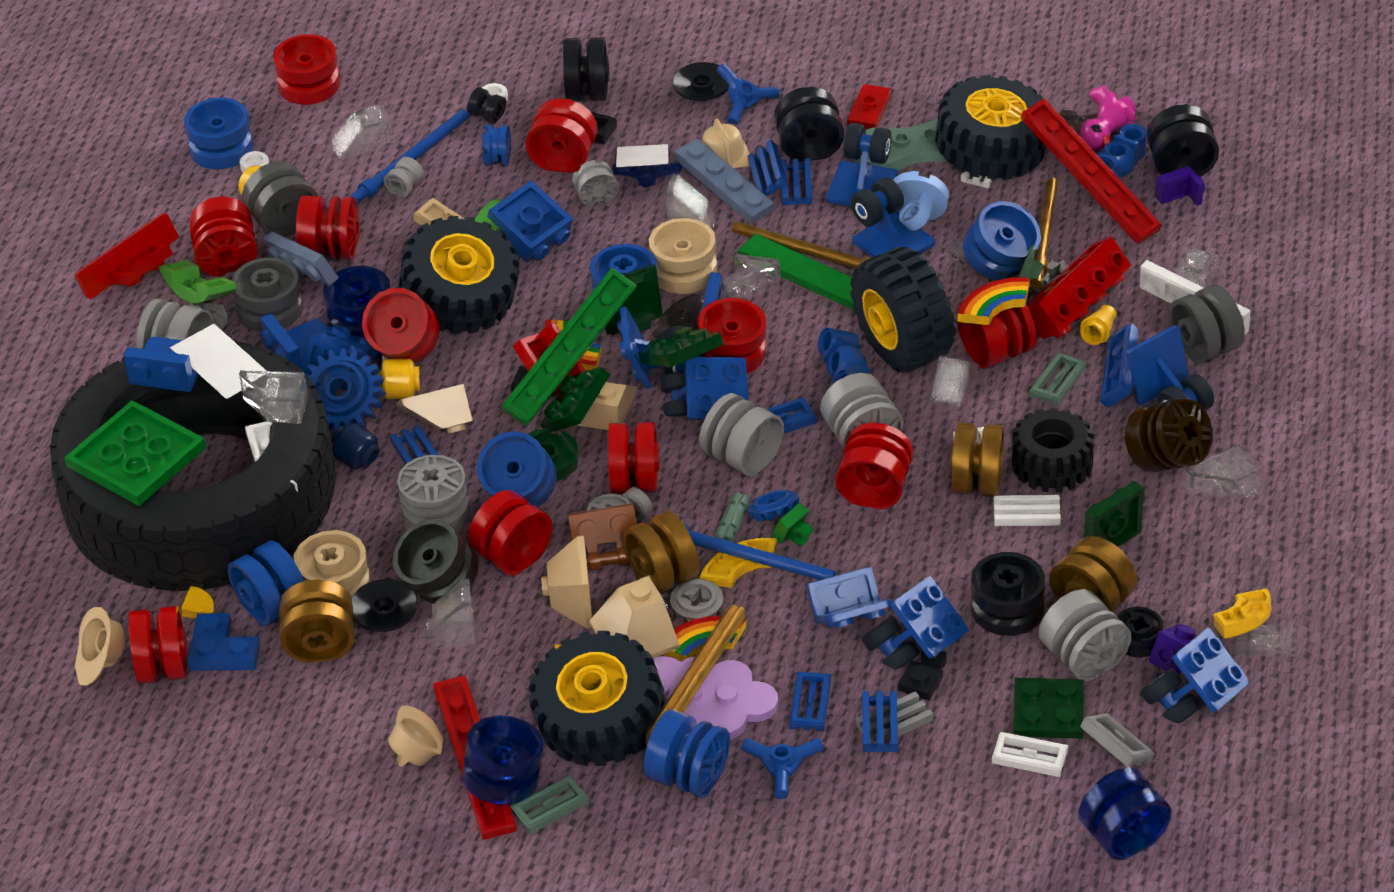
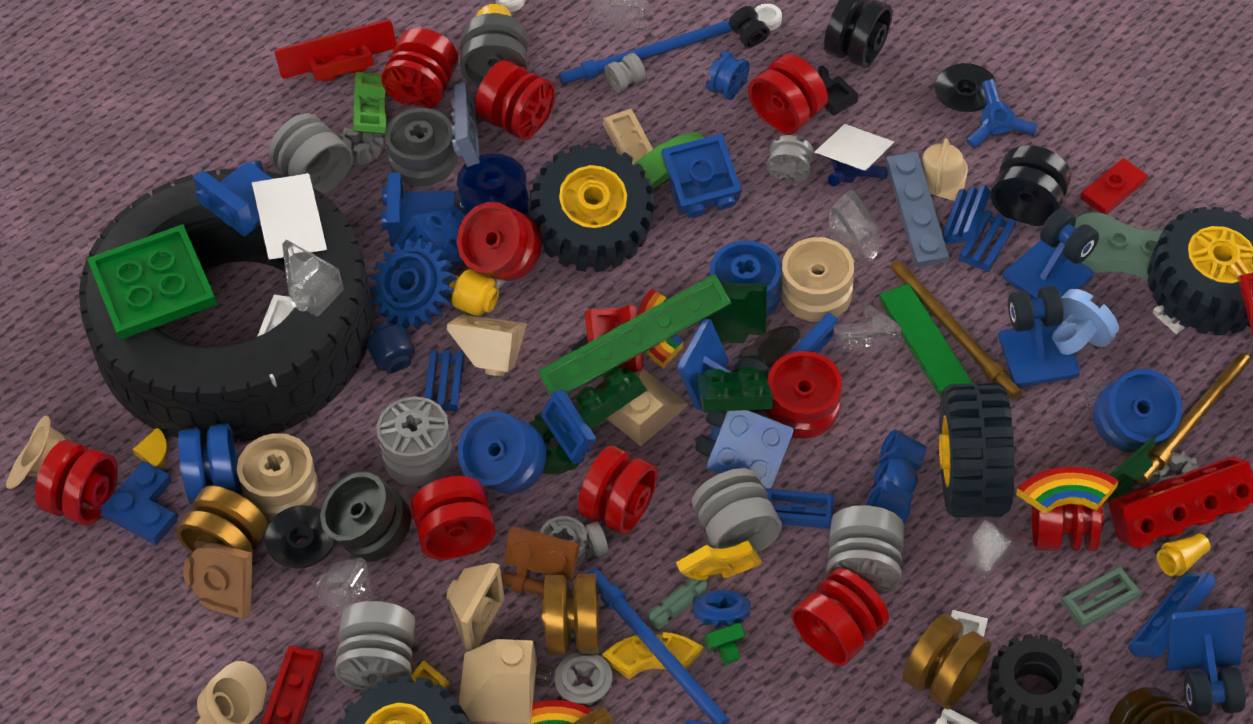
camera: 30 degrees right, 10 degrees up
(341, 657) = (221, 578): none -> medium nougat tile
(511, 641) = (374, 644): none -> light grey wheel
(560, 420) = (570, 423): none -> blue tile
(750, 473) = (716, 561): none -> yellow tile

